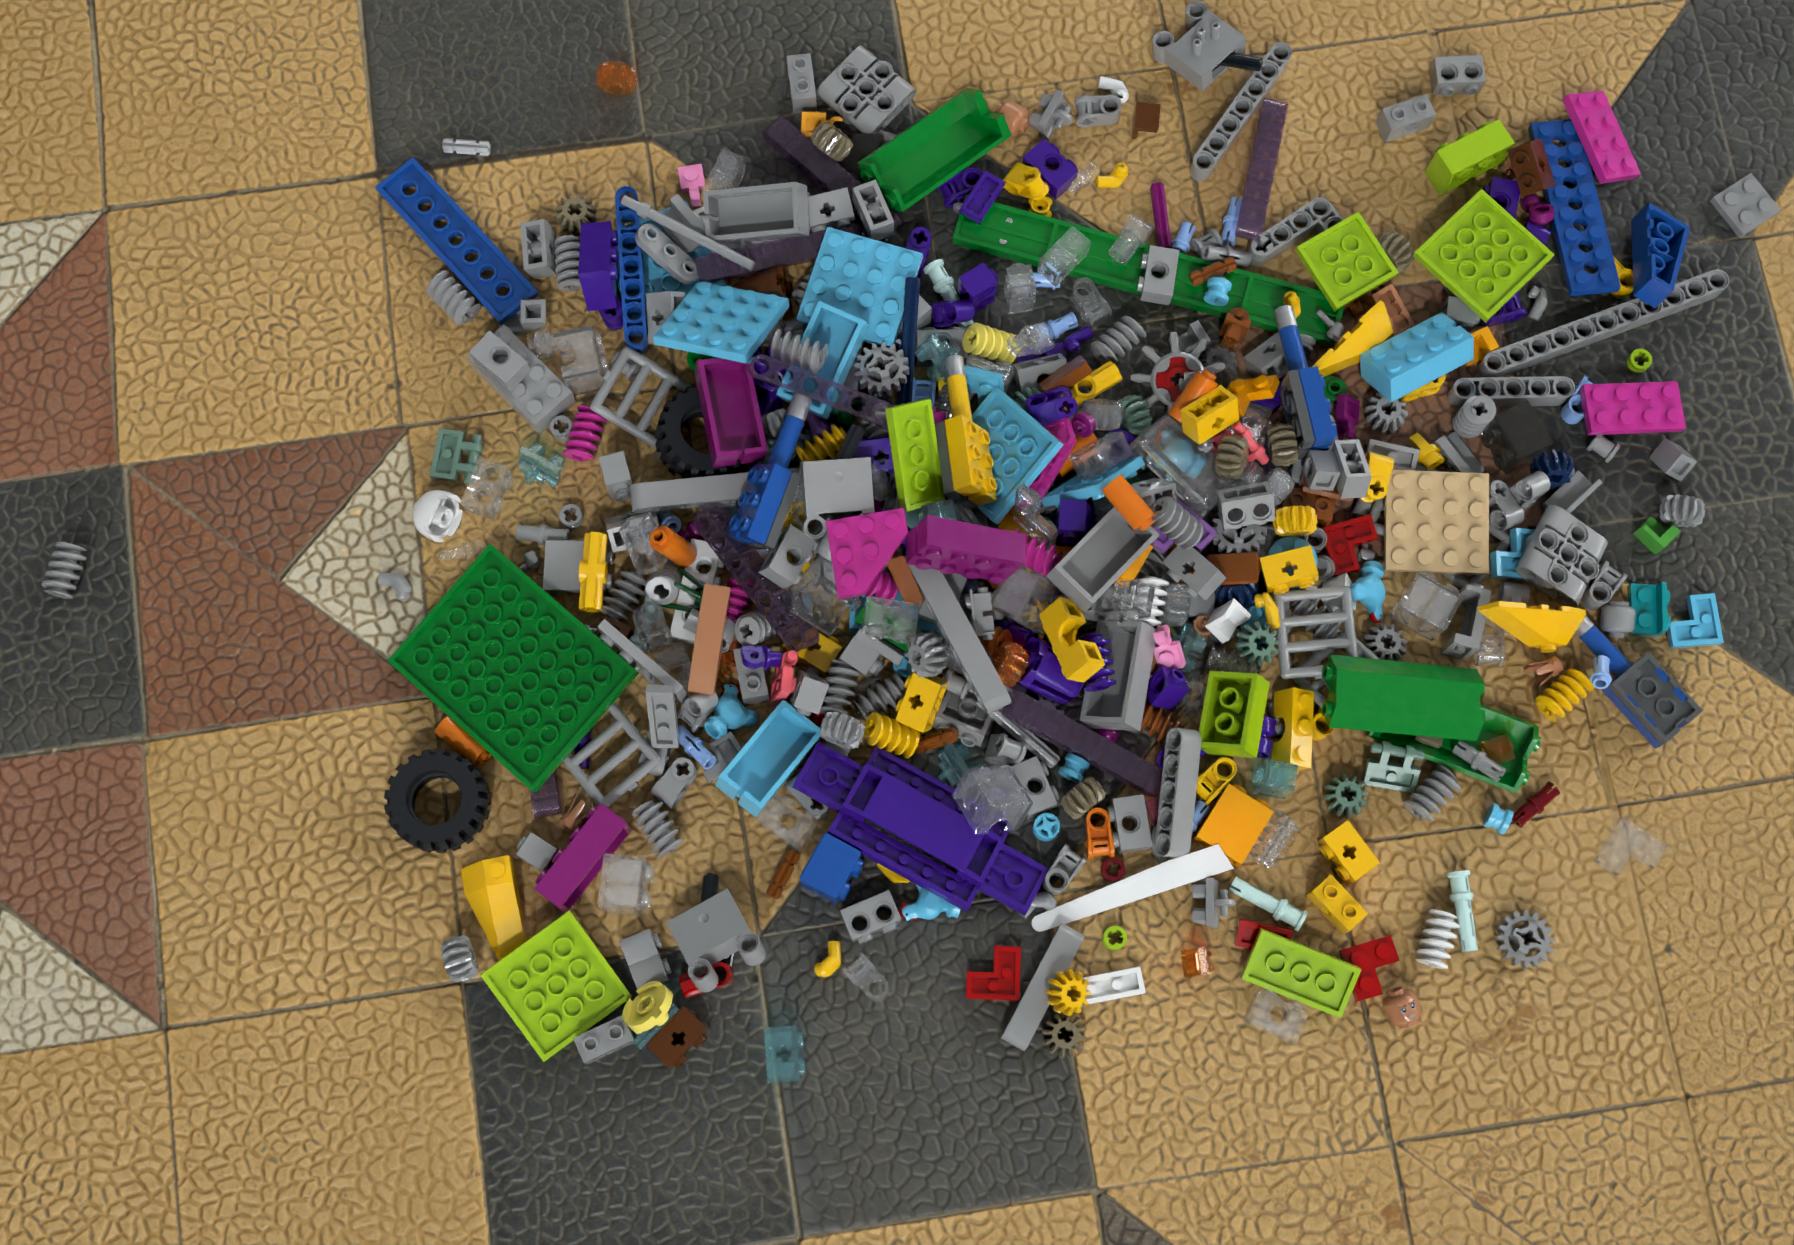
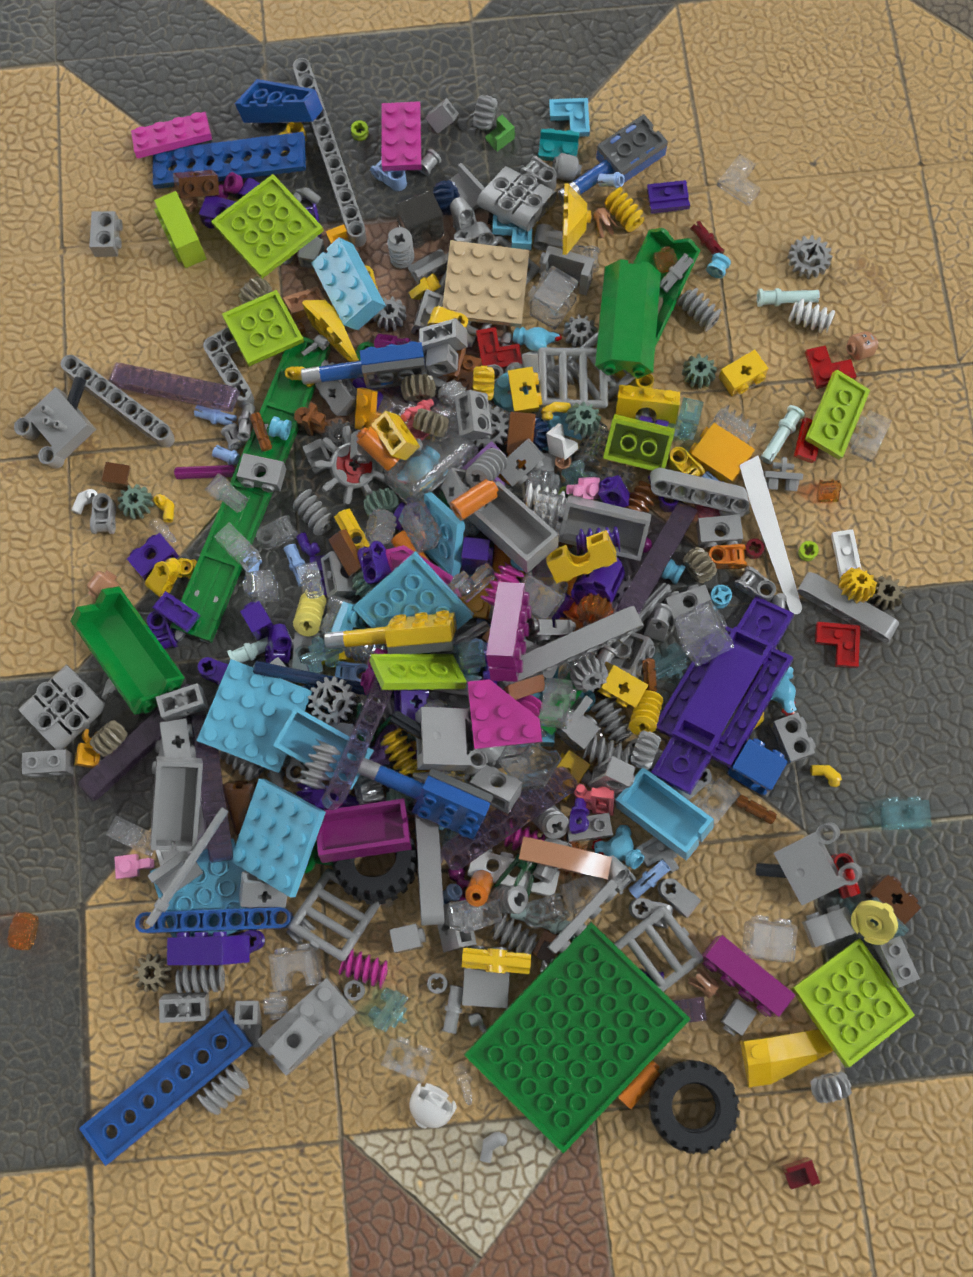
camera: 80 degrees left, 0 degrees up
(366, 927) = (801, 1173): none -> dark red panel
(448, 455) = (372, 1095): sand green plate -> none
(466, 146) = (72, 1077): light grey axle -> none
(656, 249) = (199, 895): light grey plate -> none
(657, 828) = (718, 911): light grey piece -> none
(662, 716) = (632, 899): light grey plate -> none
(866, 977) = (840, 746): clear piece -> none
(1054, 117) = (95, 549): light grey hips -> none
(1083, 424) = (391, 538): magenta plate -> none
(1107, 143) = (127, 501): none -> sand green gear
(1337, 904) = (784, 384): yellow brick -> none
(1393, 774) = (683, 335): sand green plate -> none
(1405, 118) = (139, 275): light grey brick -> none
(1520, 385) = (380, 230): light grey beam -> none
(1591, 752) = (668, 196): none -> dark purple plate
(1745, 205) = (238, 43): light grey plate -> none

